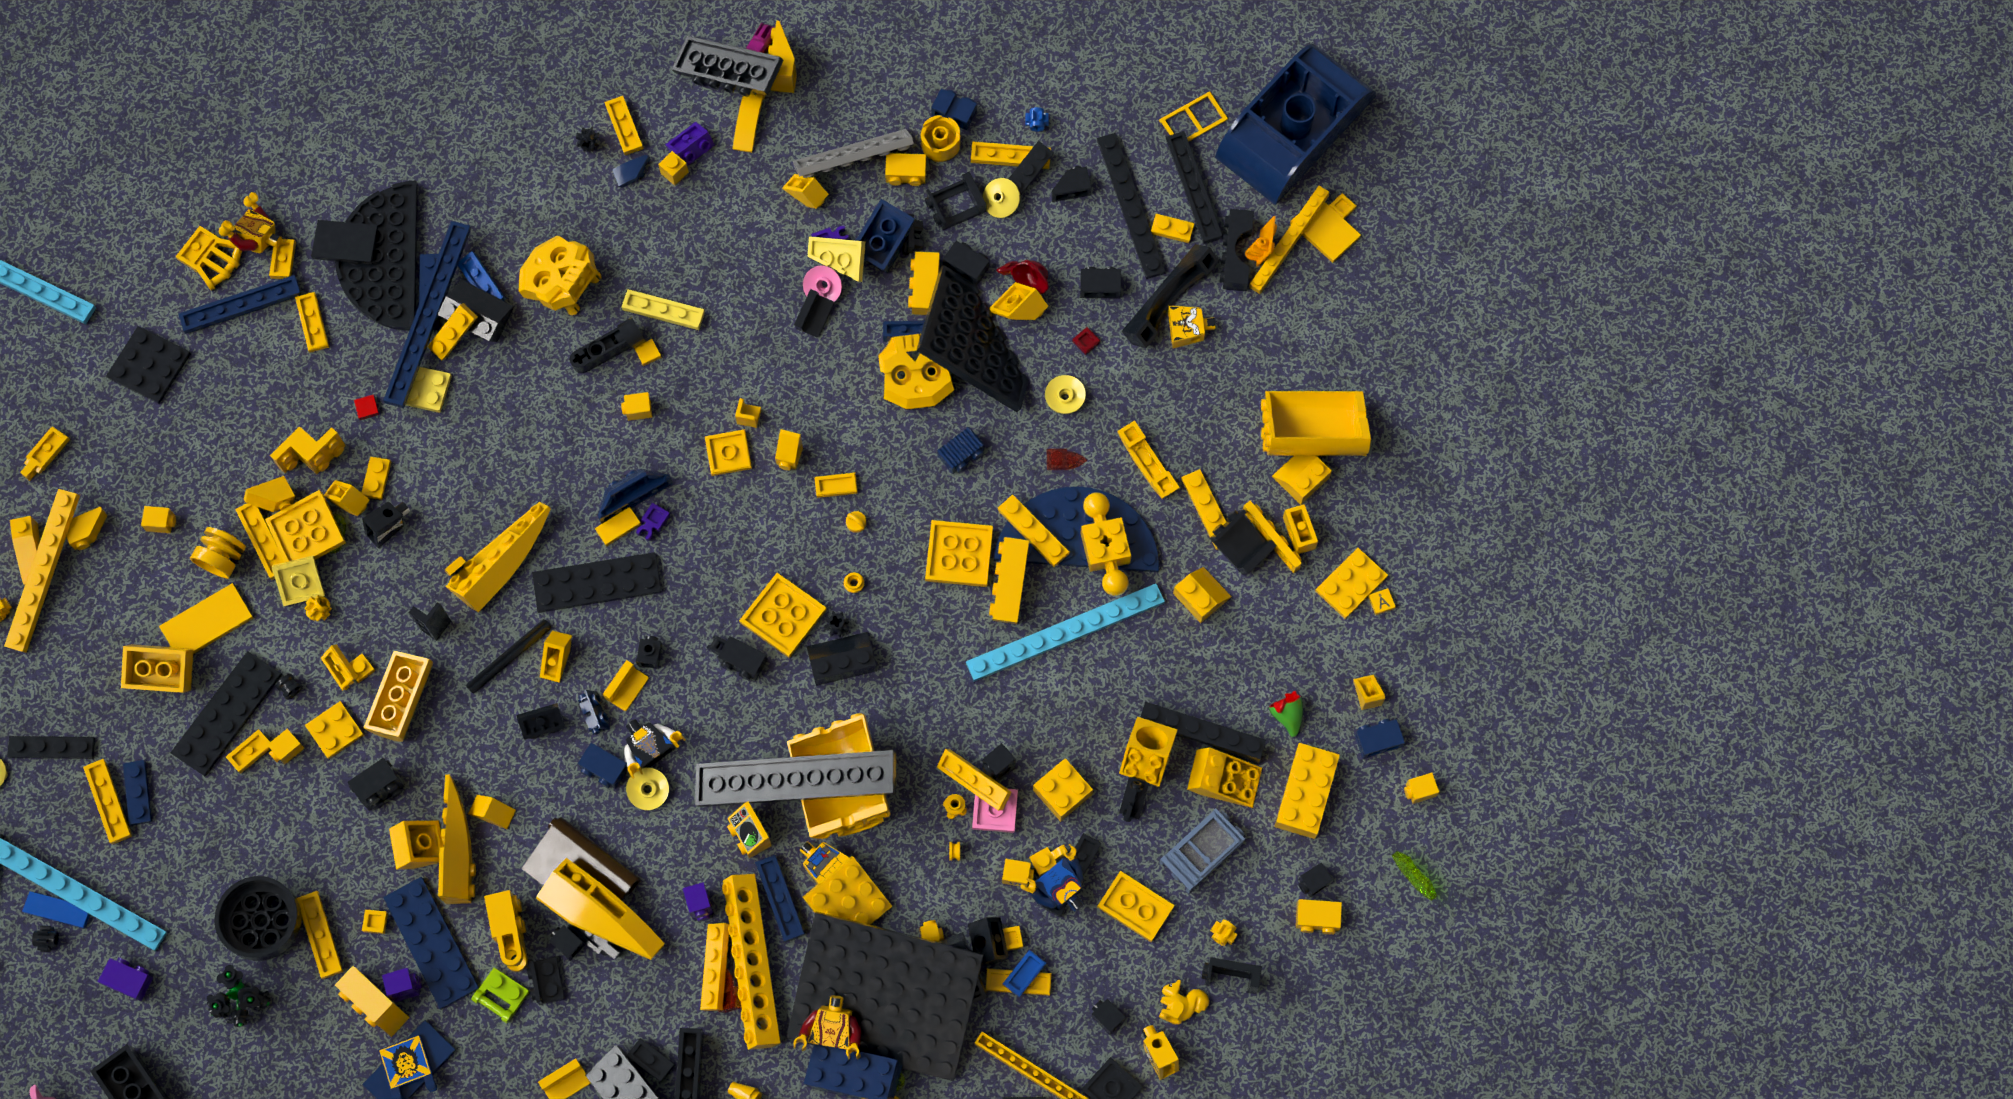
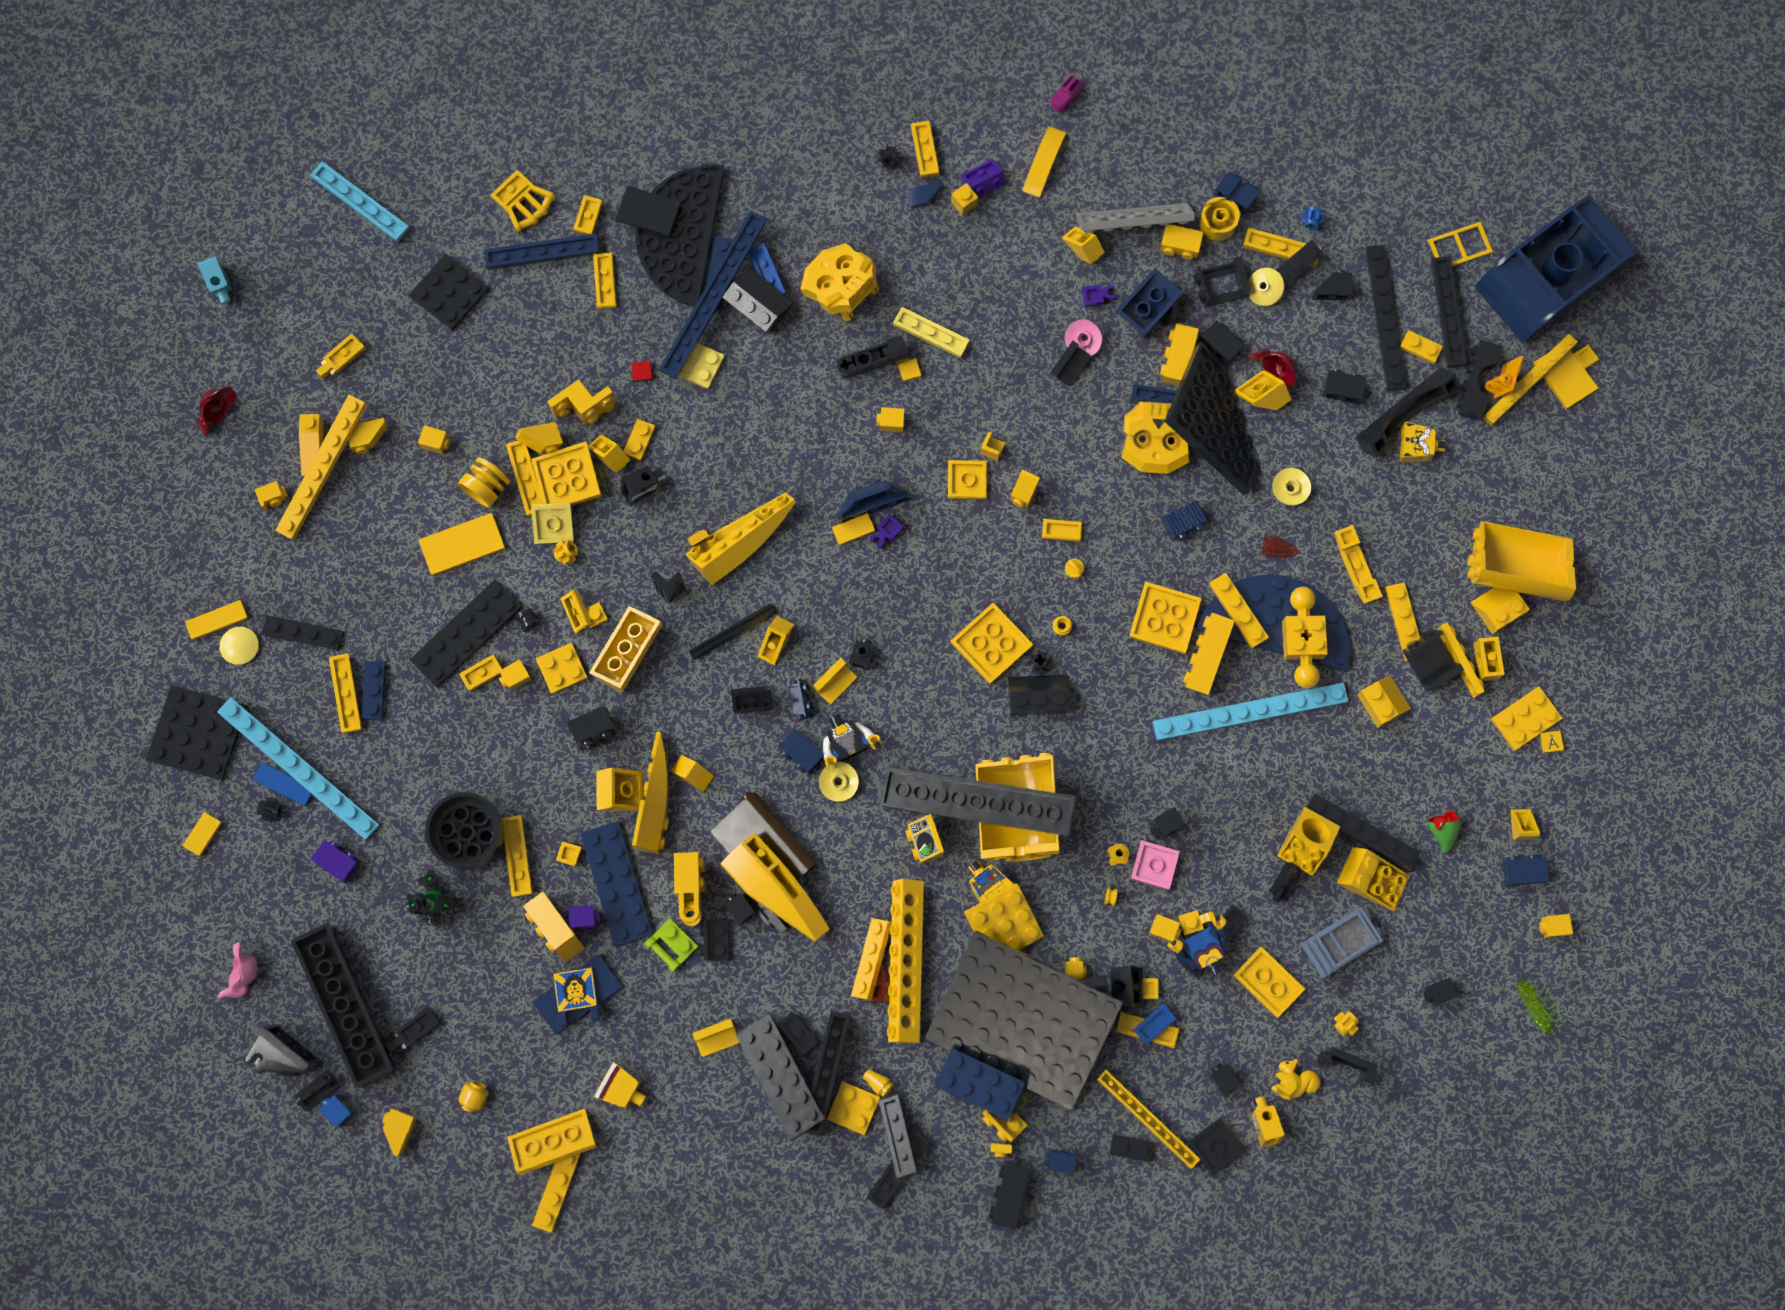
camera: 10 degrees right, 5 degrees up
(157, 668) = (410, 579): yellow brick -> none
(253, 230) = (566, 183): torso -> none
(452, 331) = (733, 316): yellow plate -> none
(596, 582) = (824, 578): black plate -> none
(698, 902) = (867, 897): dark purple brick -> none
(727, 66) = (1032, 112): black plate -> none
(739, 657) = (944, 675): black brick -> none
(779, 898) = (941, 908): dark blue plate -> none
(787, 75) = (1084, 117): yellow slope -> none
(831, 1028) = (970, 1039): torso -> none
(839, 254) = (1105, 312): light yellow wing -> none
(974, 779) = (1141, 834): yellow plate -> none
(1062, 789) = (1221, 859): yellow brick -> none
(1086, 340) = (1320, 439): dark red tile -> none
(1307, 790) = (1448, 906): yellow brick -> none
(1318, 915) = (1437, 1026): yellow brick -> none

